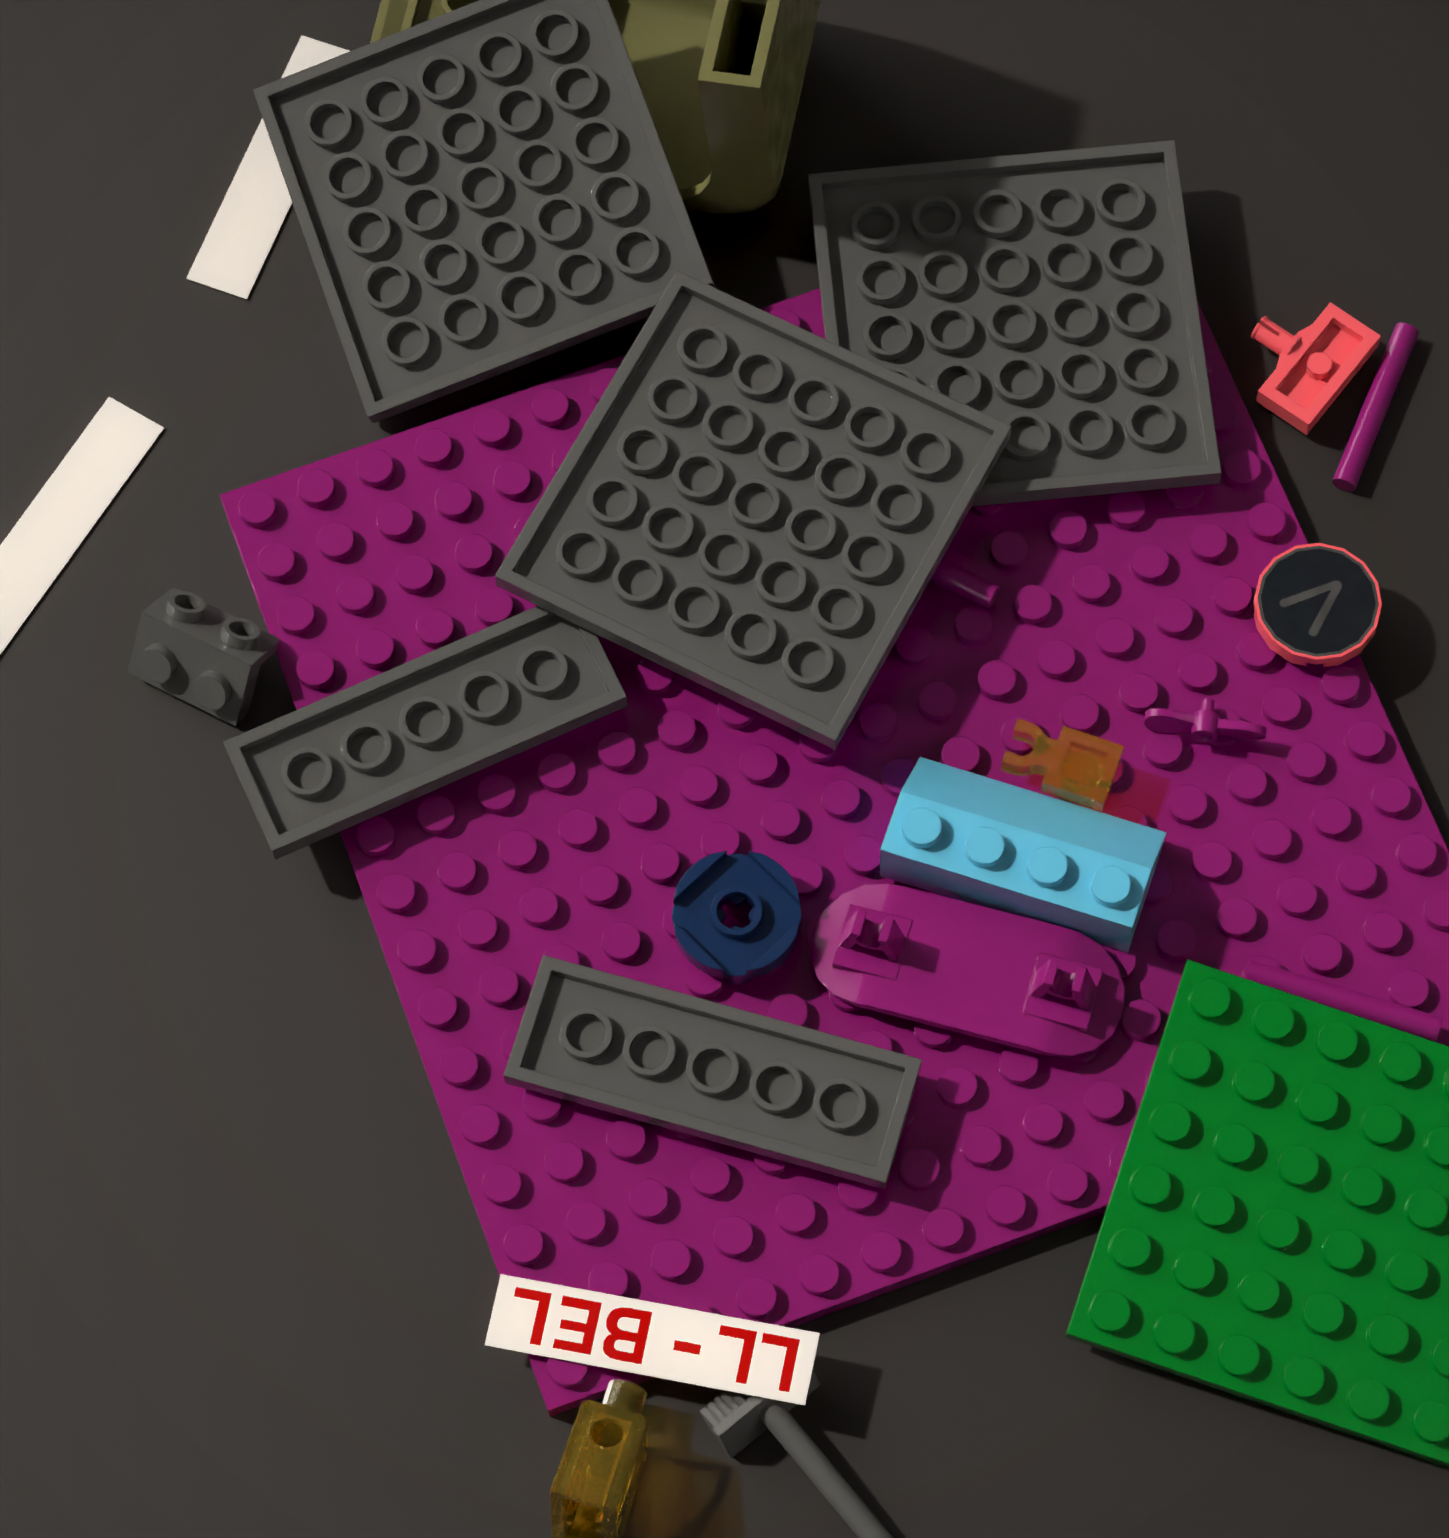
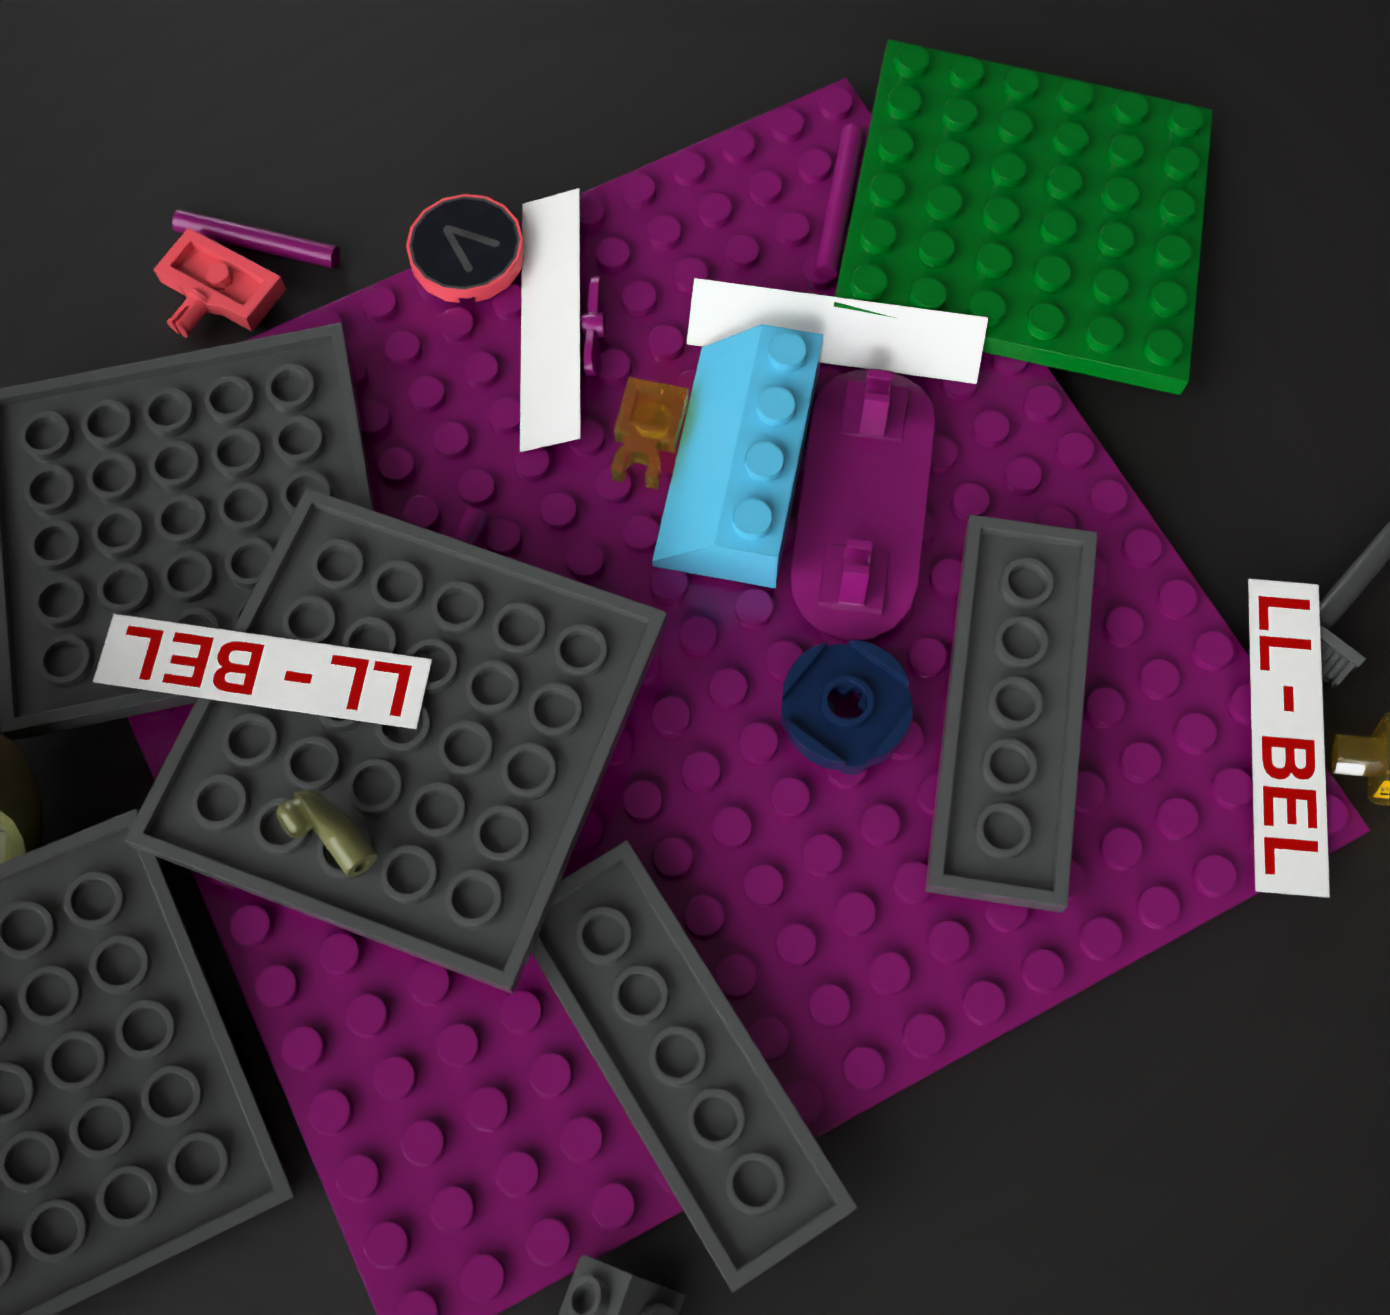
camera: 100 degrees left, 0 degrees up
(660, 432) = (335, 829): none -> olive arm
(821, 385) = (264, 671): none -> white sticker
(1170, 941) = (915, 344): none -> white sticker
(1220, 683) = (550, 322): none -> white sticker

